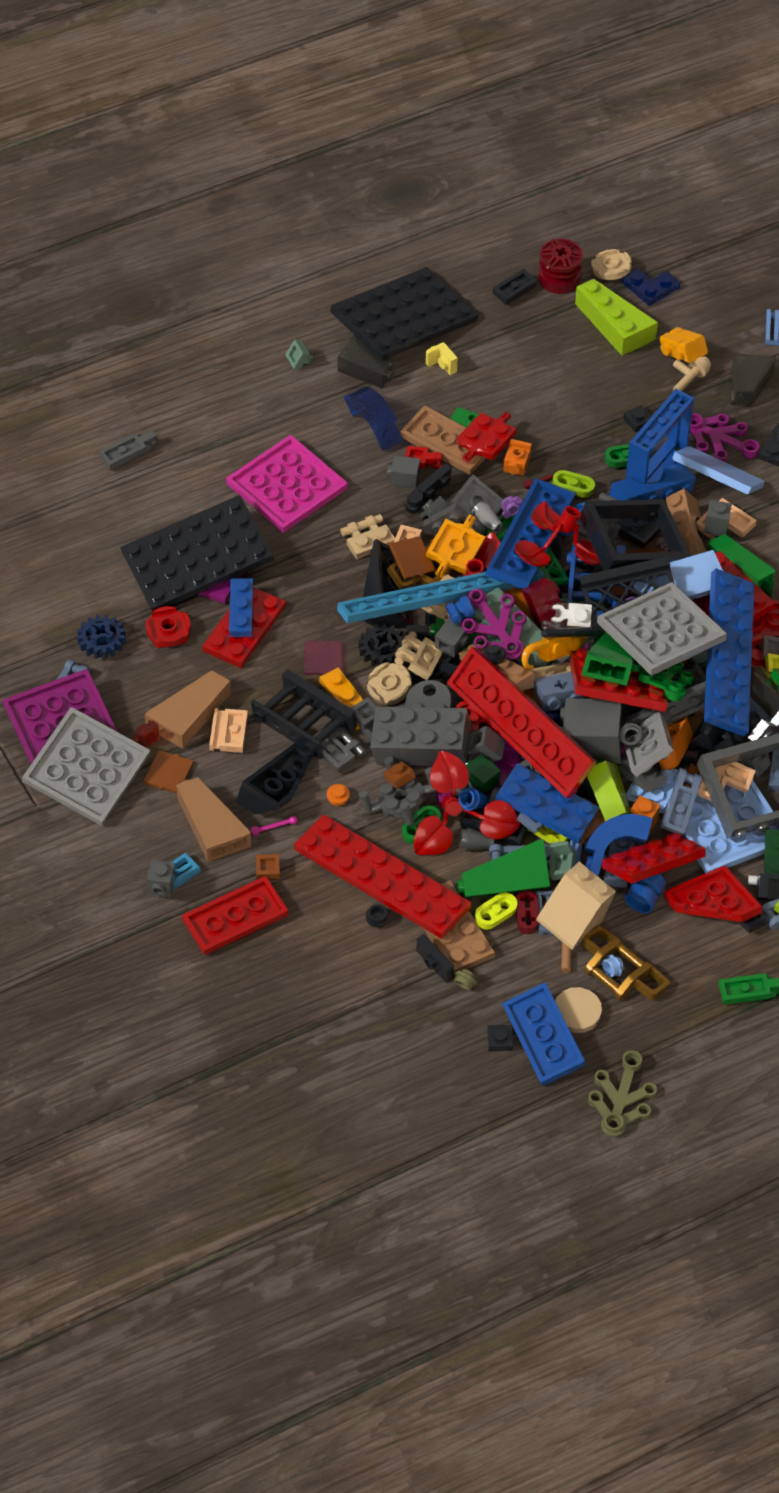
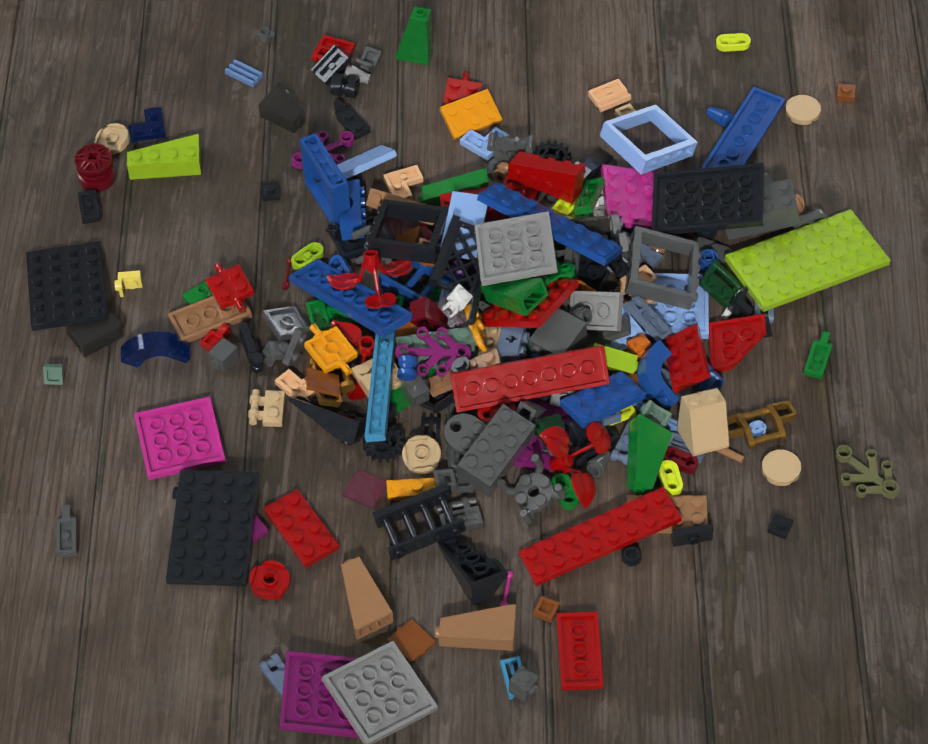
camera: 60 degrees left, 0 degrees up
(101, 636) = (249, 633): dark blue gear -> none
(147, 734) = (369, 638): clear red plate -> none
(228, 730) = (399, 580): light nougat plate -> none
(241, 608) = (288, 519): blue plate -> none
(338, 794) = (504, 534): orange plate -> none
(399, 775) = (517, 482): dark orange plate -> none
(425, 658) = (415, 419): tan plate -> none
(465, 979) = (721, 523): olive plate -> none
(472, 799) = (576, 447): blue cone -> none
(487, 516) = (306, 319): light grey cone -> none
(507, 505) = (310, 300): medium lavender plate -> none
(517, 457) = (259, 279): orange brick -> none
(544, 1034) = (795, 495): blue plate -> none
(617, 456) = (300, 217): green plate -> none
(683, 345) = (228, 130): light orange brick -> none
(697, 368) = (251, 133): tan piece -> none
(717, 517) = (407, 182): dark grey brick -> none

